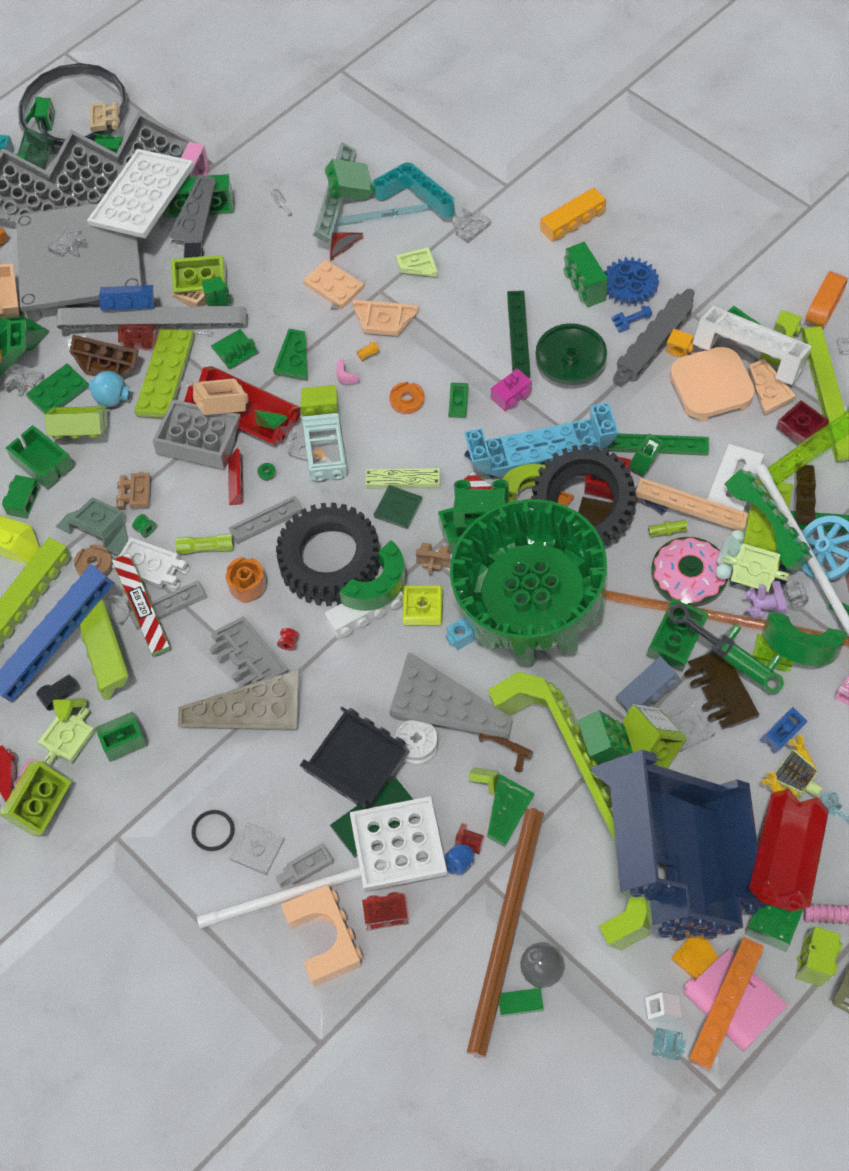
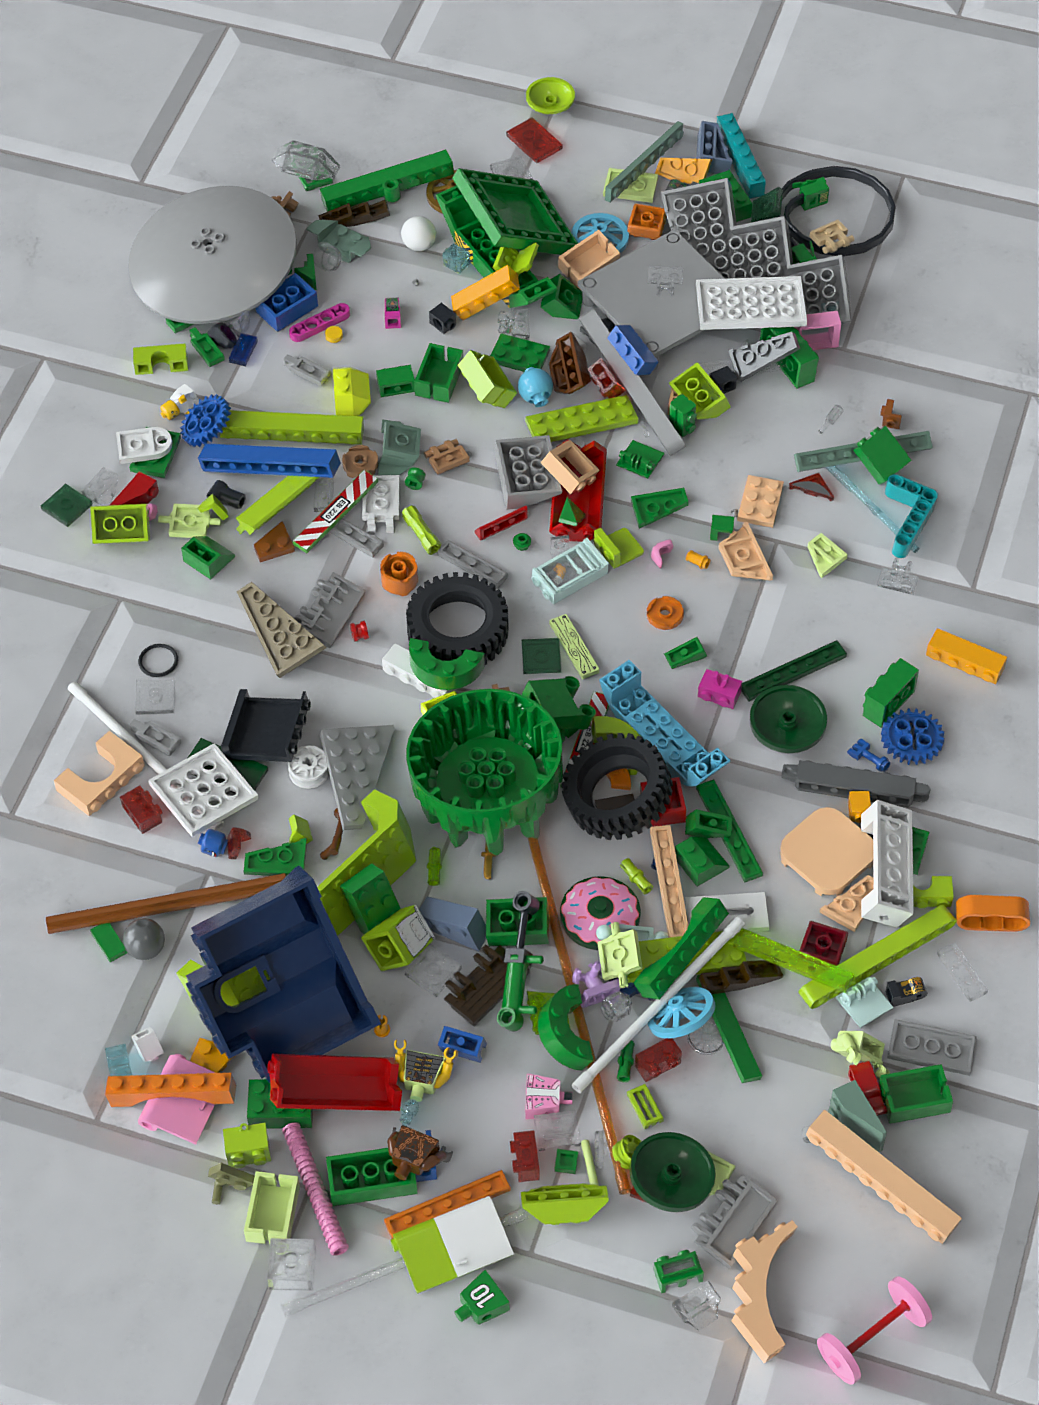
camera: 60 degrees right, 5 degrees down
(141, 673) = (274, 544): none -> dark orange wing
(306, 163) = (889, 419): none -> dark orange bracket
(345, 318) = (721, 524): none -> green panel
(578, 680) = (434, 866): none -> clear neon green axle
(596, 637) = (488, 856): none -> pearl gold piece
(676, 474) = (700, 859): none -> green slope

